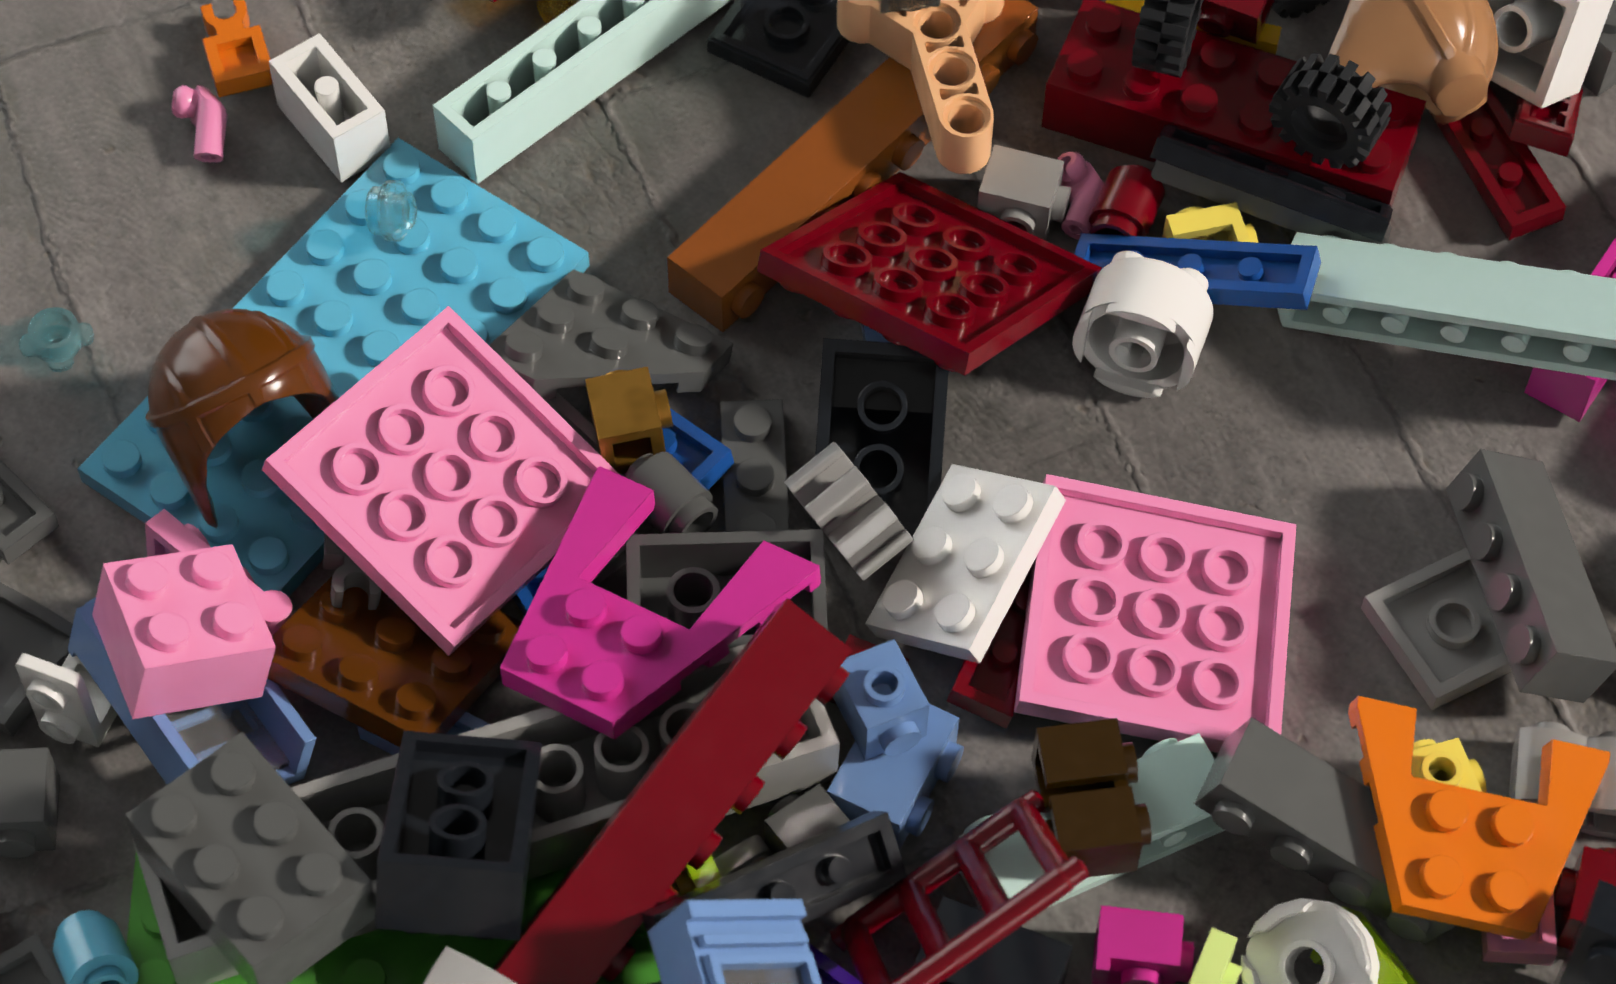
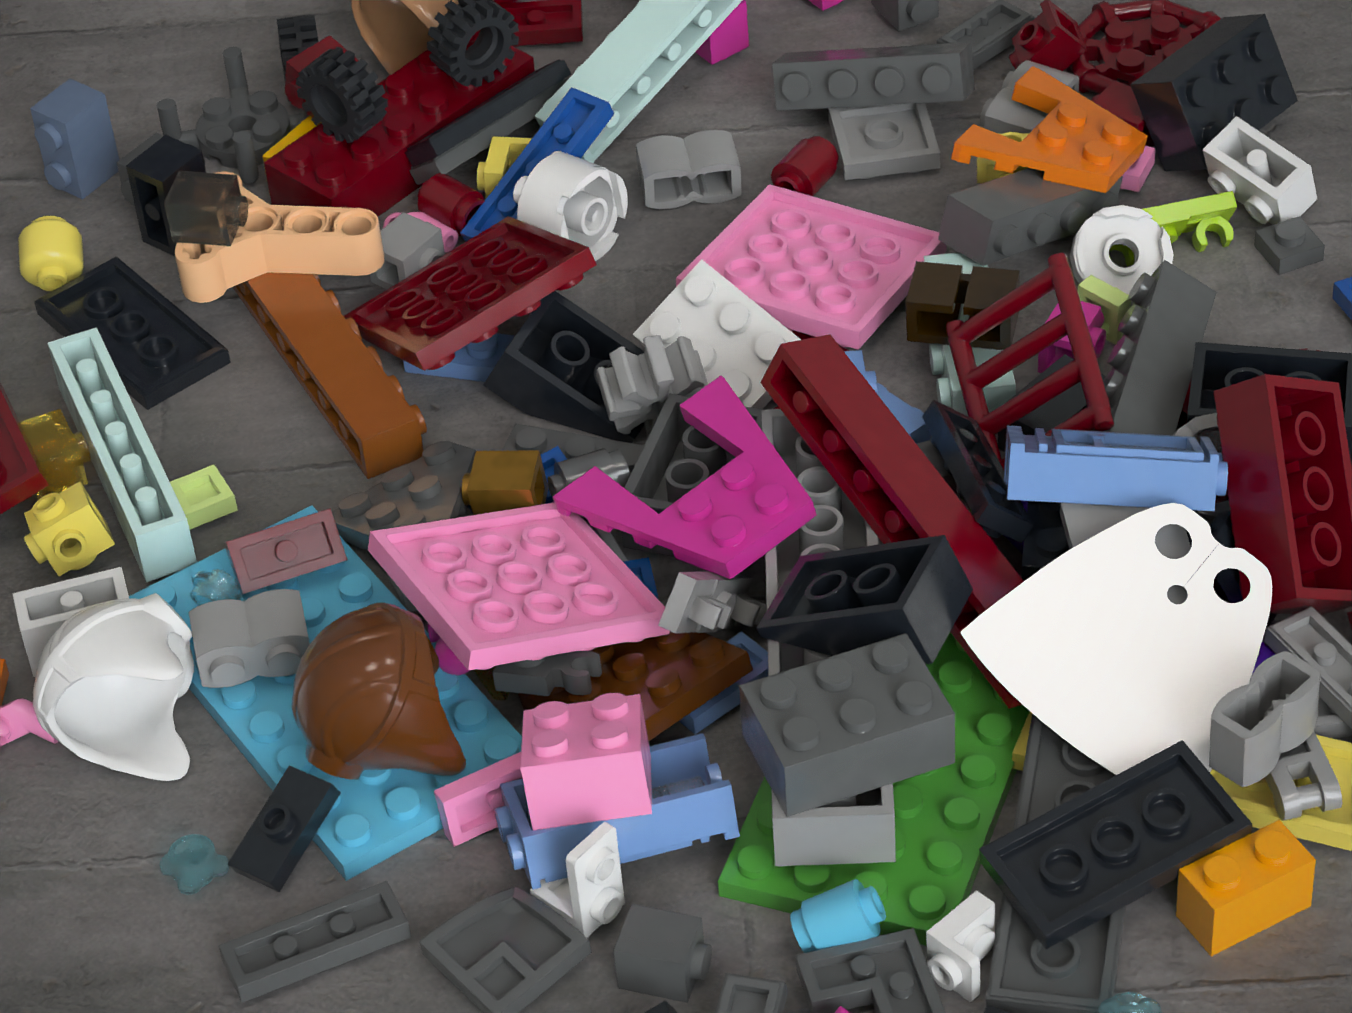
camera: 65 degrees left, 15 degrees down
(96, 397) = (284, 828): none -> black plate
(227, 174) = (113, 686): none -> white piece
(329, 265) = (249, 637): none -> light grey brick
(455, 665) = (710, 603): none -> light grey plate
(459, 43) = (67, 530): none -> light yellow brick
(468, 249) = (285, 551): none -> plate
(568, 147) = (204, 496): none -> yellowish green plate
(1293, 428) = (688, 169): none -> light grey brick
(1344, 556) = (806, 166): none -> dark red brick

